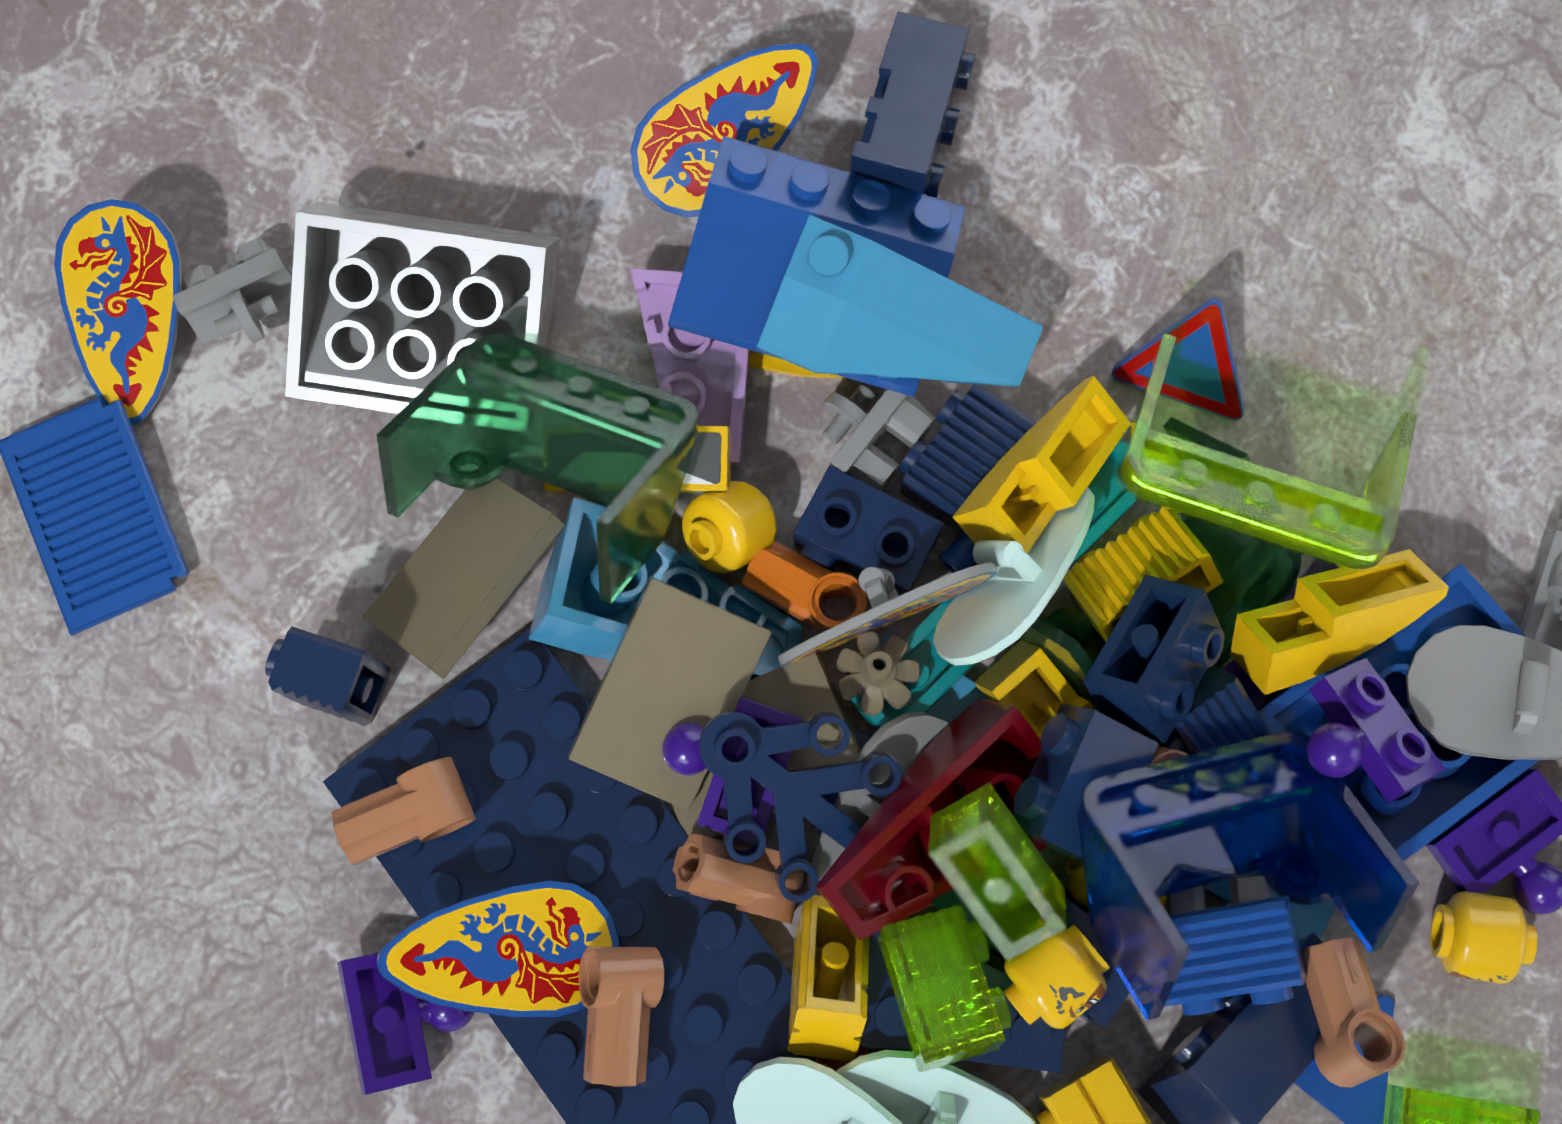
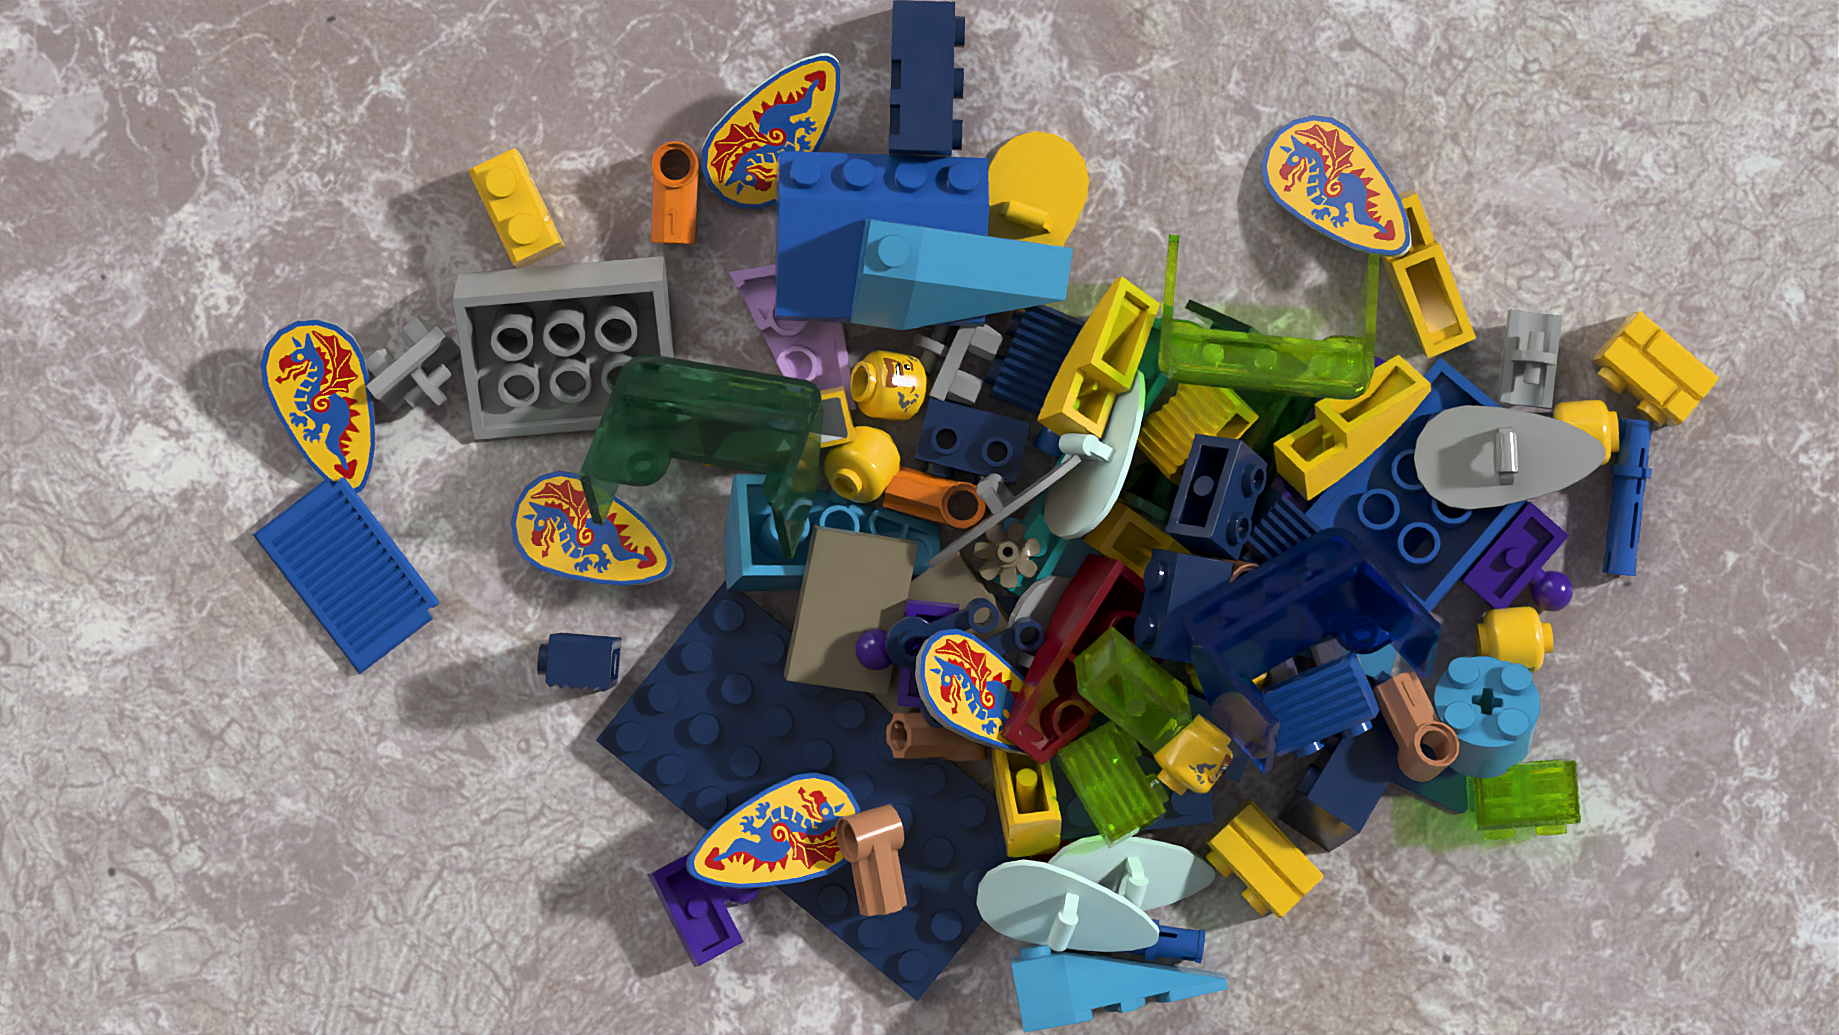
camera: 20 degrees left, 10 degrees up
(349, 532) = (559, 537): none -> shield
(406, 144) = (516, 208): none -> yellow brick
(420, 806) = (679, 744): nougat piece -> none
(463, 573) = (690, 522): dark tan tile -> none
(591, 175) = (674, 200): none -> orange piece
(785, 443) = (890, 385): none -> yellow head
(787, 815) = (967, 687): none -> shield
(1015, 260) = (1036, 189): none -> yellow shield
(1200, 365) = (1203, 239): piece -> none
(1369, 731) = (1392, 512): dark purple plate -> none
(1370, 340) = (1335, 186): none -> shield
(1450, 467) = (1427, 286): none -> yellow slope
(1450, 1016) = (1490, 710): none -> dark azure brick

